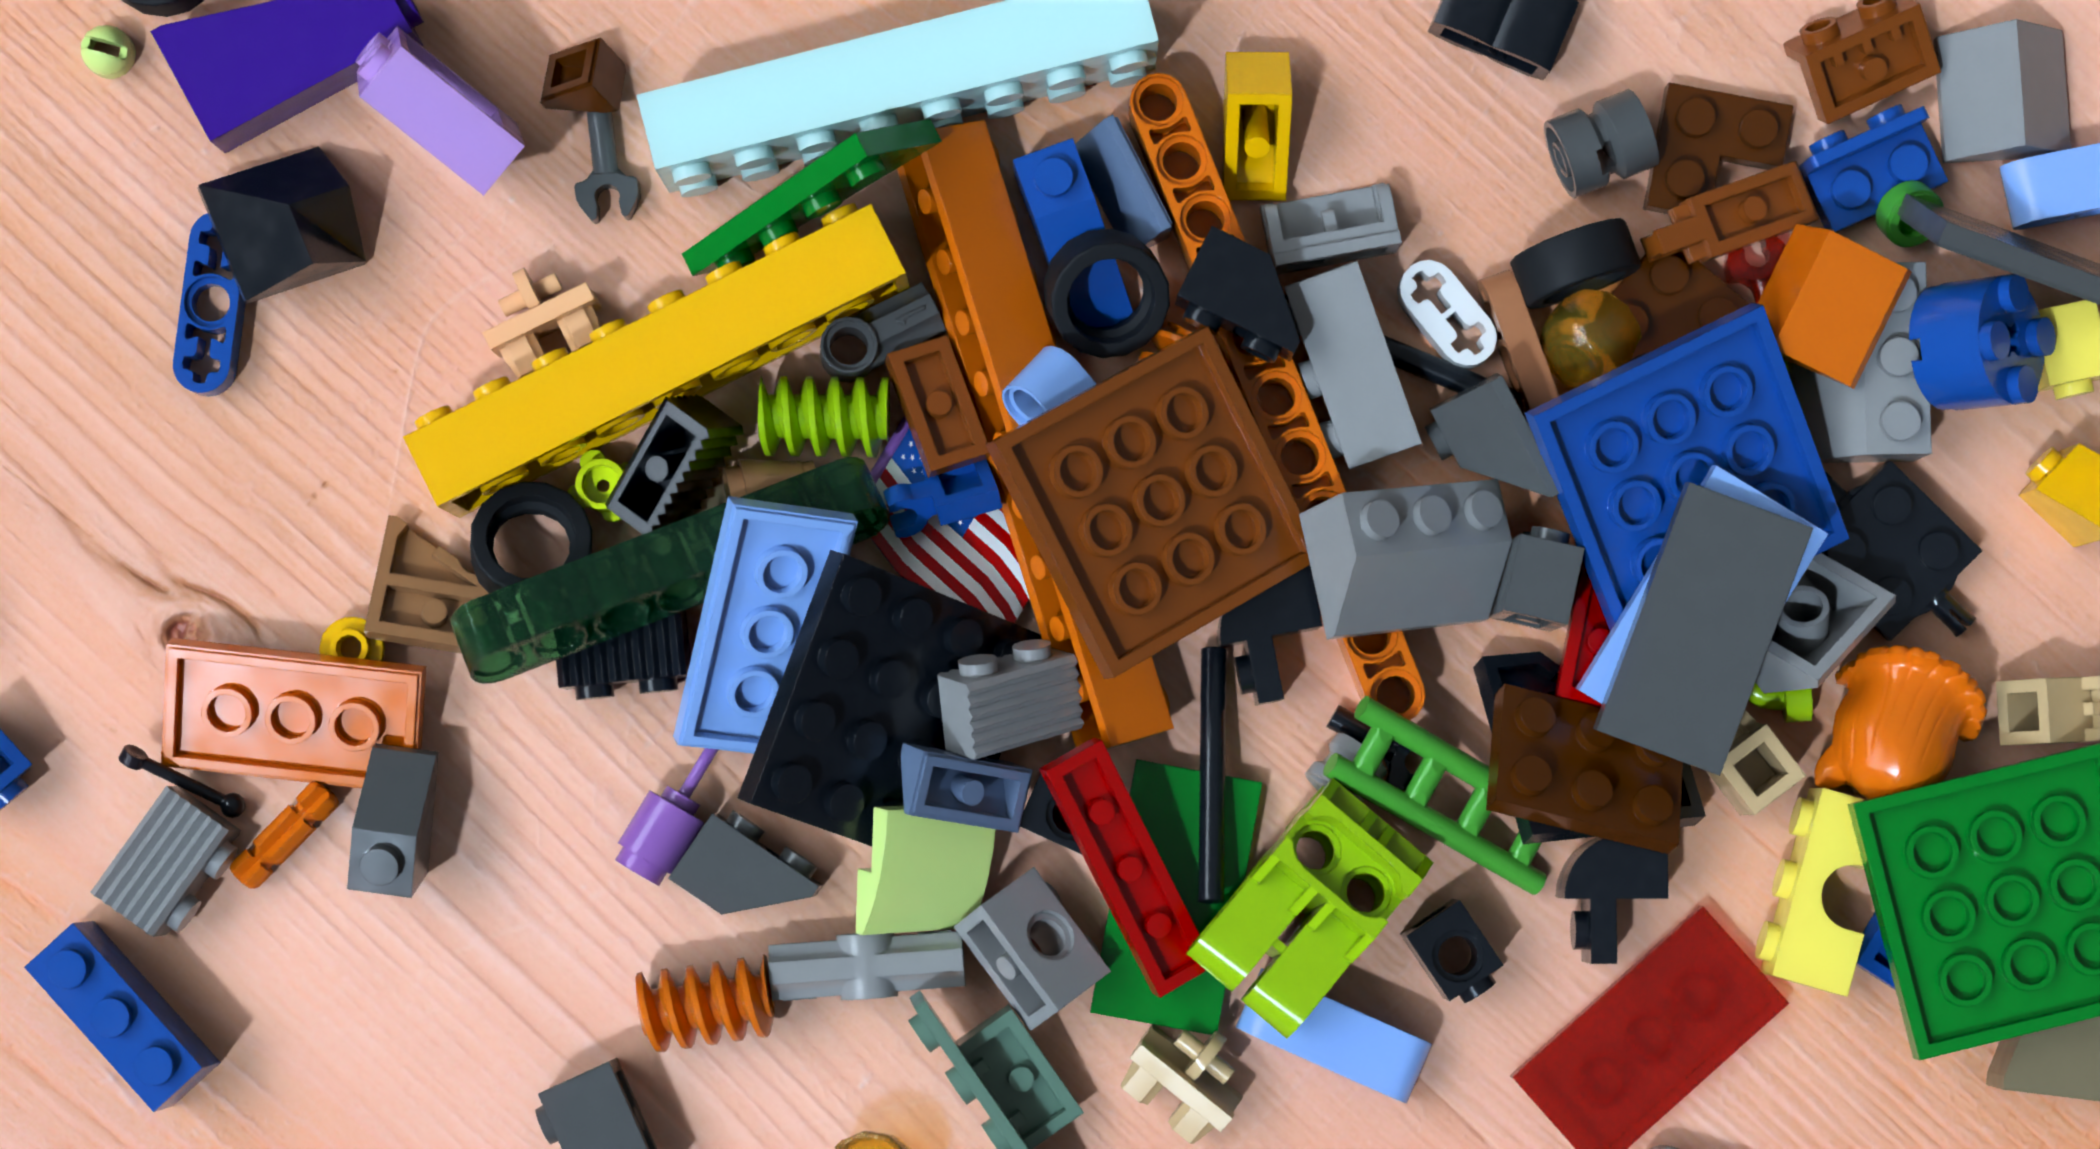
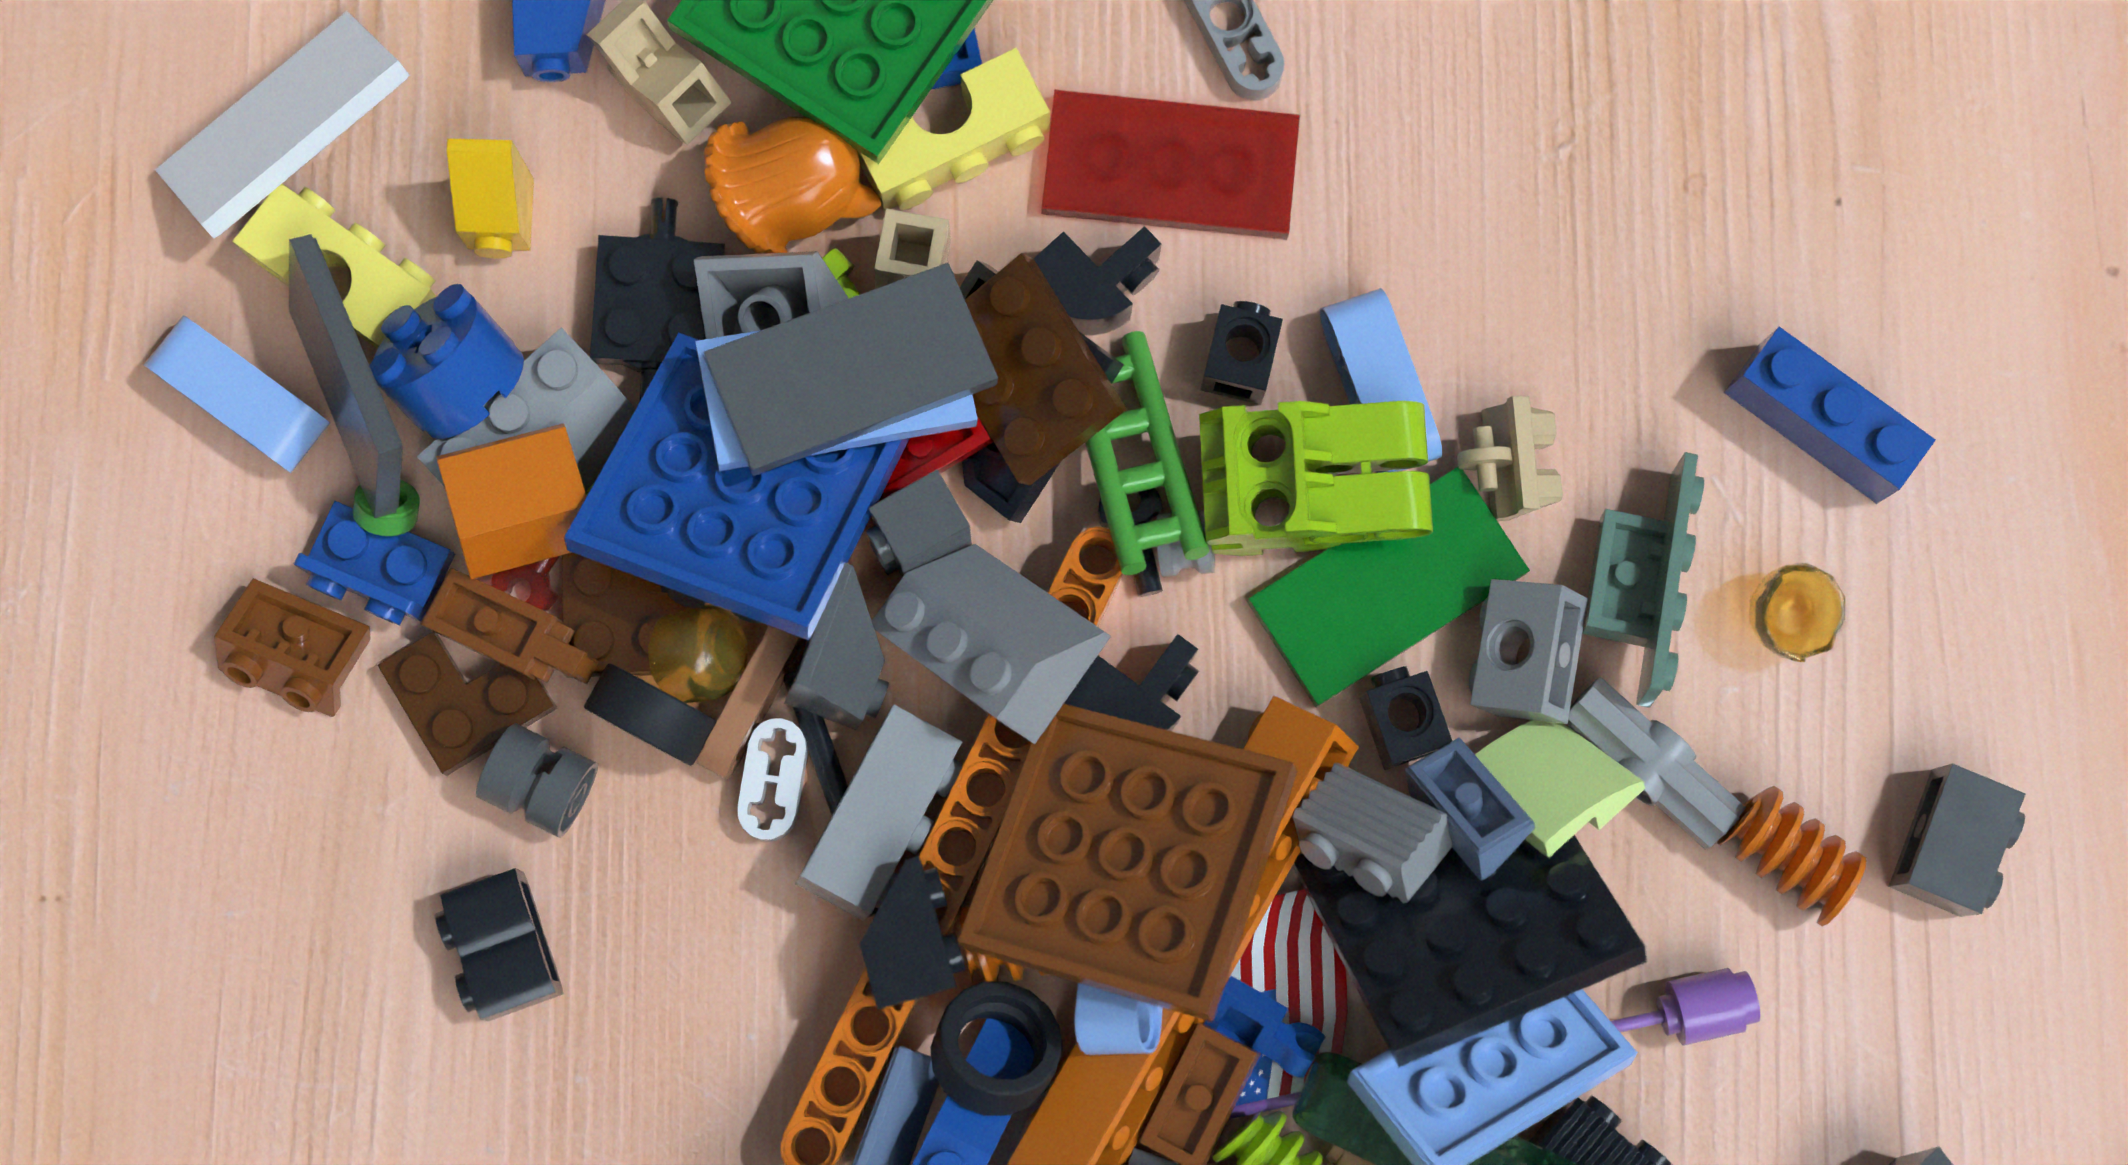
camera: 140 degrees left, 5 degrees down
(737, 872) = (1675, 917): dark grey slope -> none
(1124, 864) = (1408, 639): red plate -> none
(1212, 776) = (1279, 637): black bar -> none
(1256, 125) = (757, 1056): yellow slope -> none
(1331, 228) = (785, 928): light grey hinge -> none
(2002, 92) = (229, 520): light grey slope -> none

